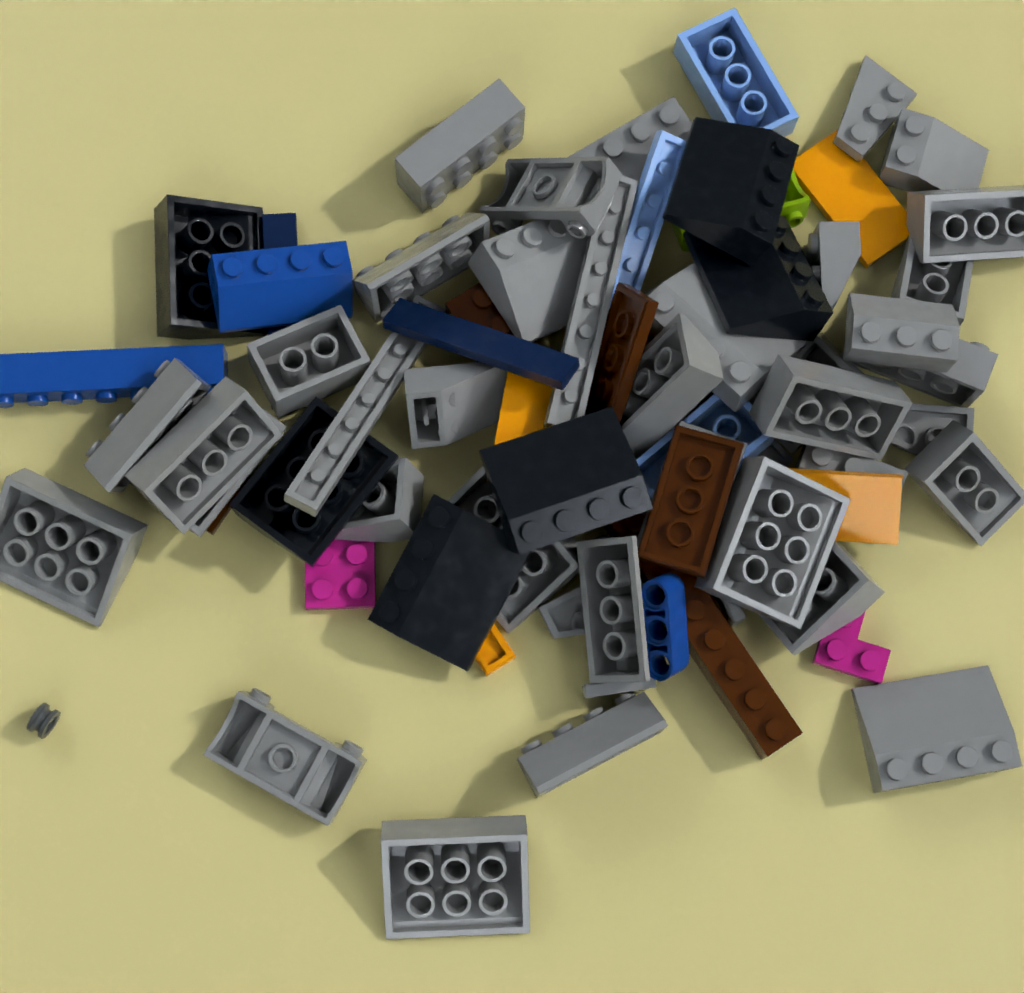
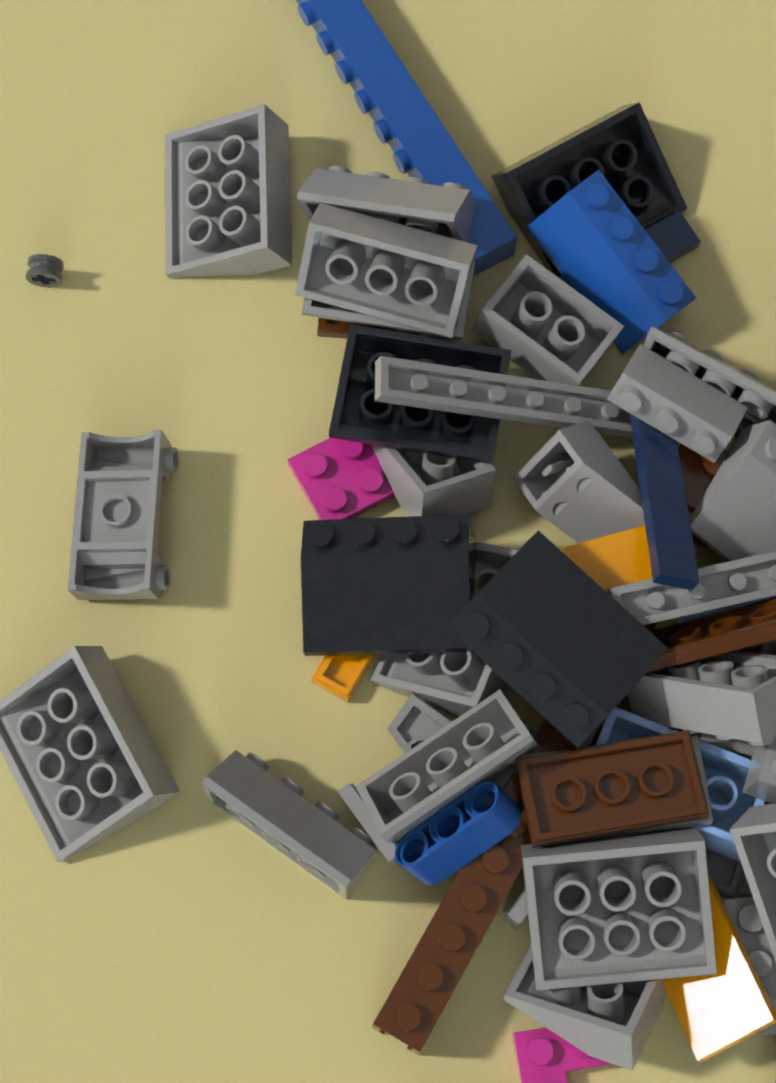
camera: 65 degrees right, 5 degrees down
(427, 299) = (677, 403): none -> light grey brick

